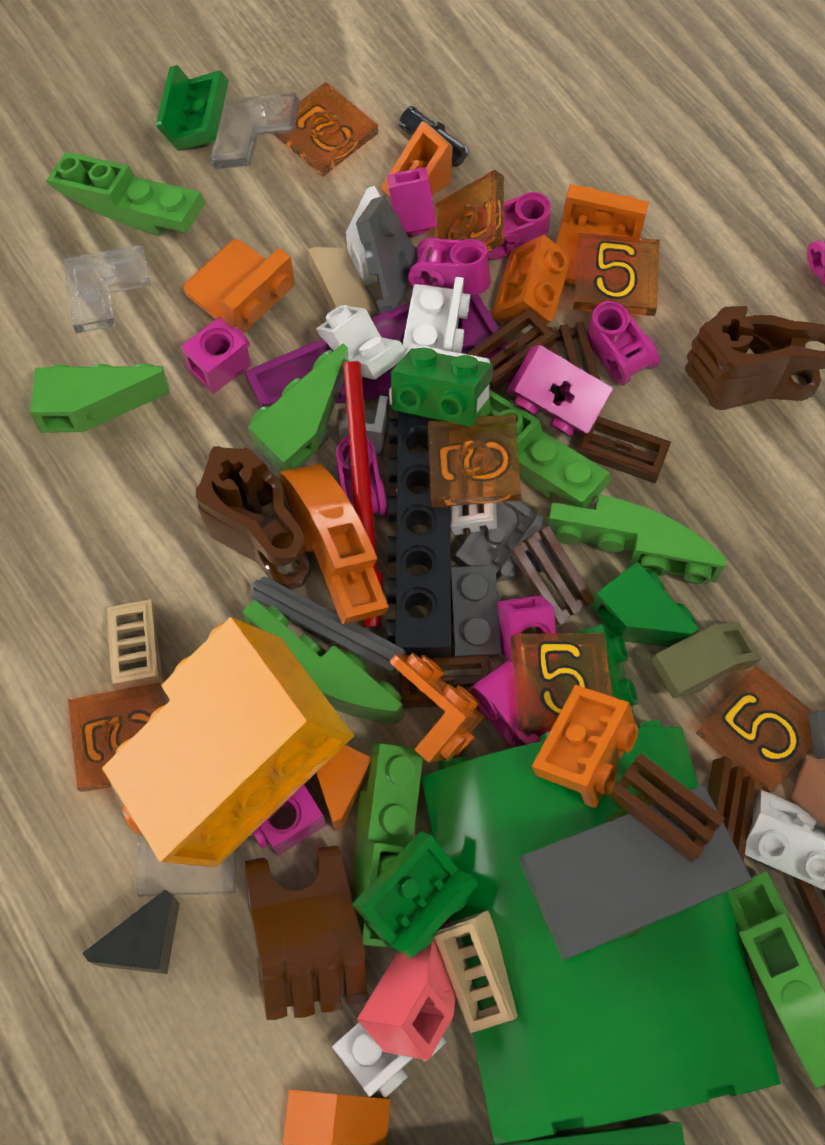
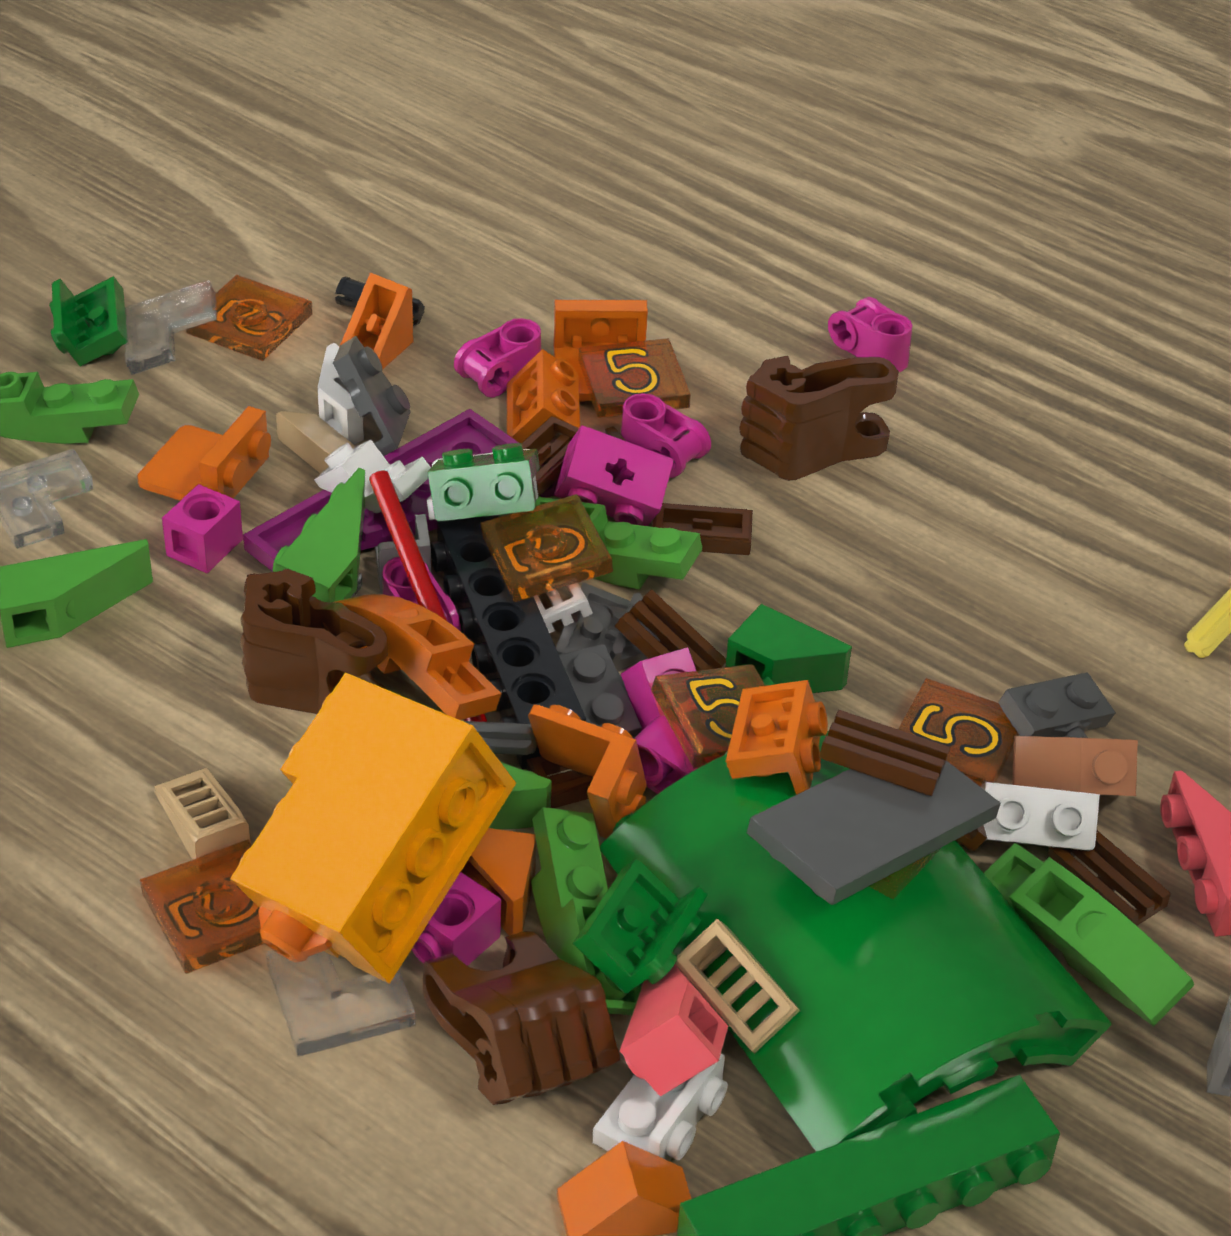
camera: 20 degrees left, 25 degrees down
(141, 940) = (316, 1085): pearl dark grey slope -> none
(412, 200) = (390, 344): dark pink brick -> none
(436, 316) = (451, 432): white bracket -> none
(451, 260) = (454, 392): dark pink piece -> none
(474, 212) = (453, 359): clear orange tile -> none
(652, 538) = (736, 585): bright green slope -> none
(703, 658) = (866, 681): olive slope -> none

